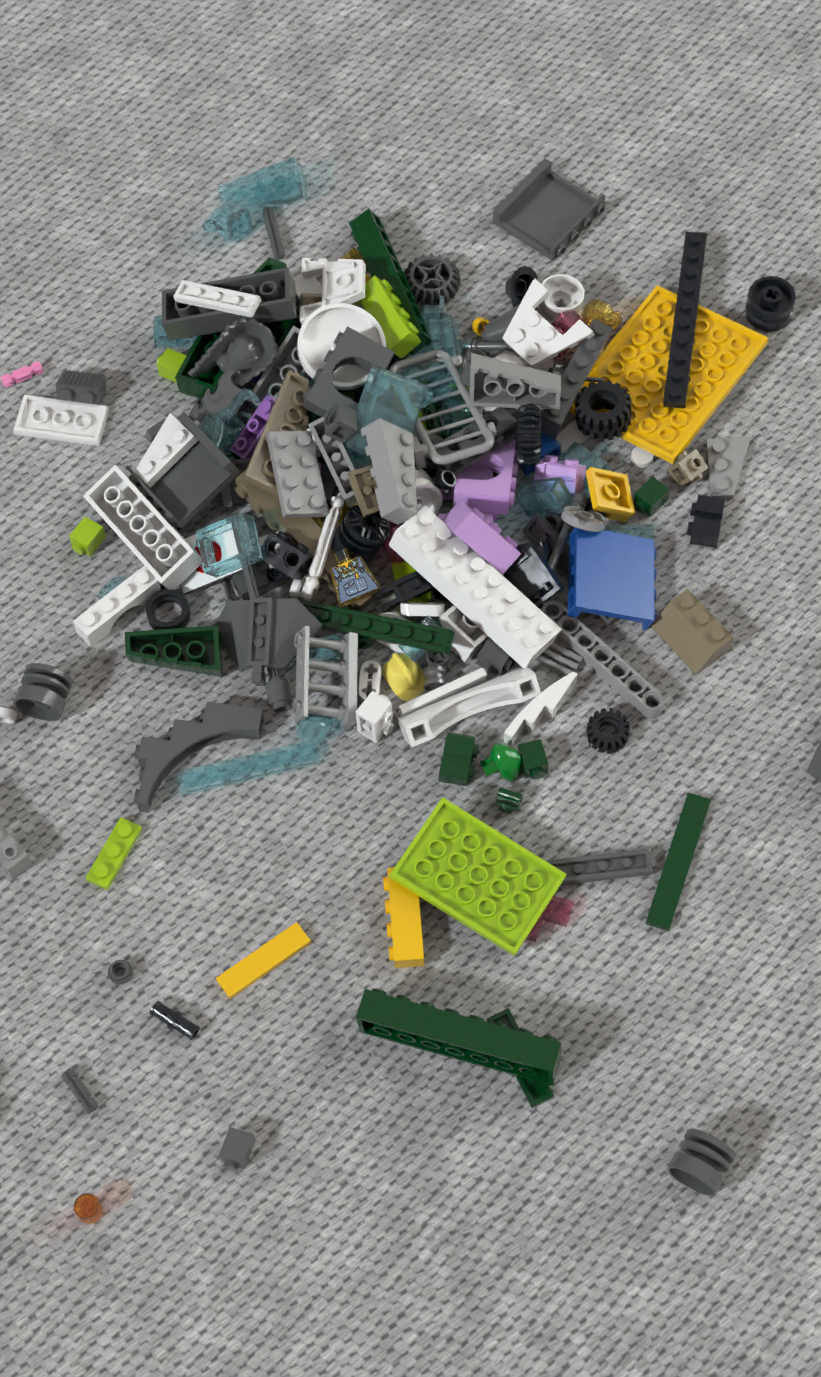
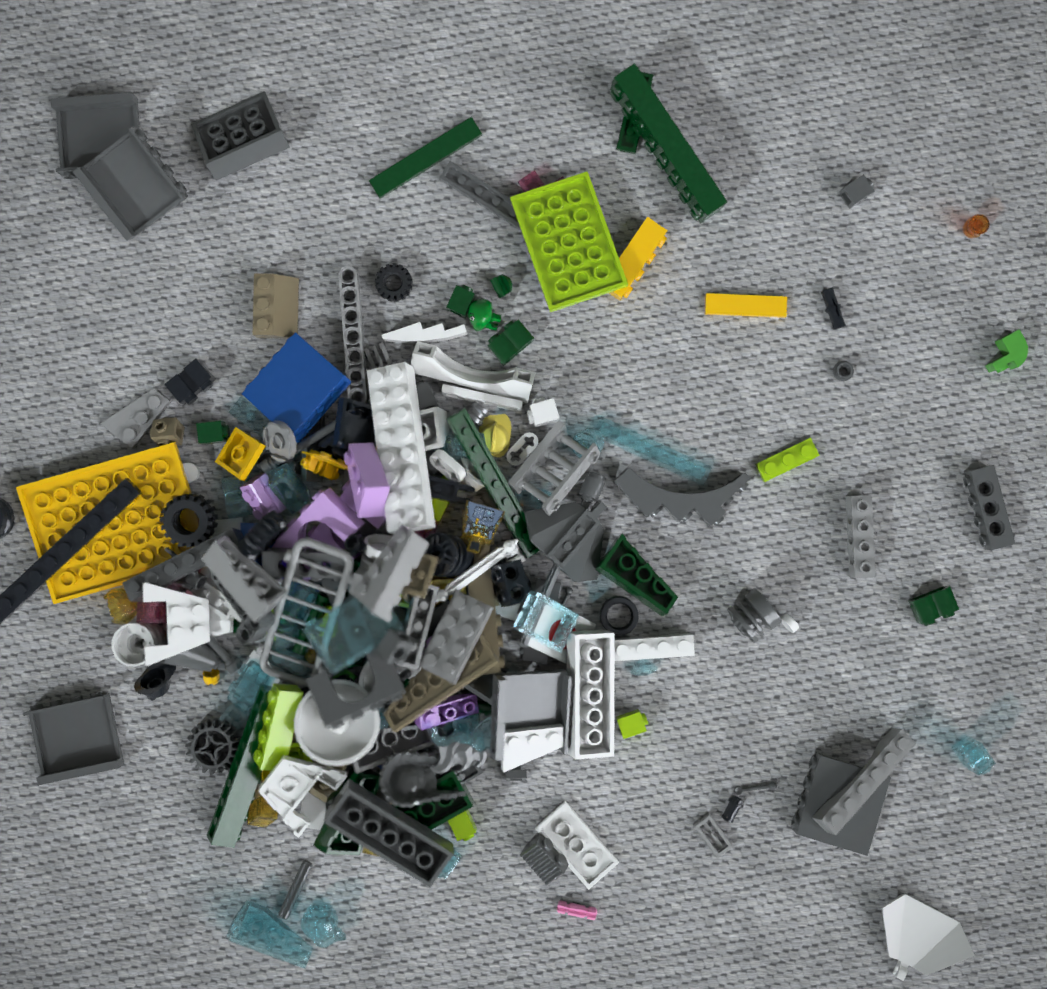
camera: 145 degrees left, 25 degrees up
(79, 1090) = (925, 310): dark grey axle -> none
(217, 298) = (398, 839): white tile -> none
(536, 532) = (322, 464): none -> yellow hinge

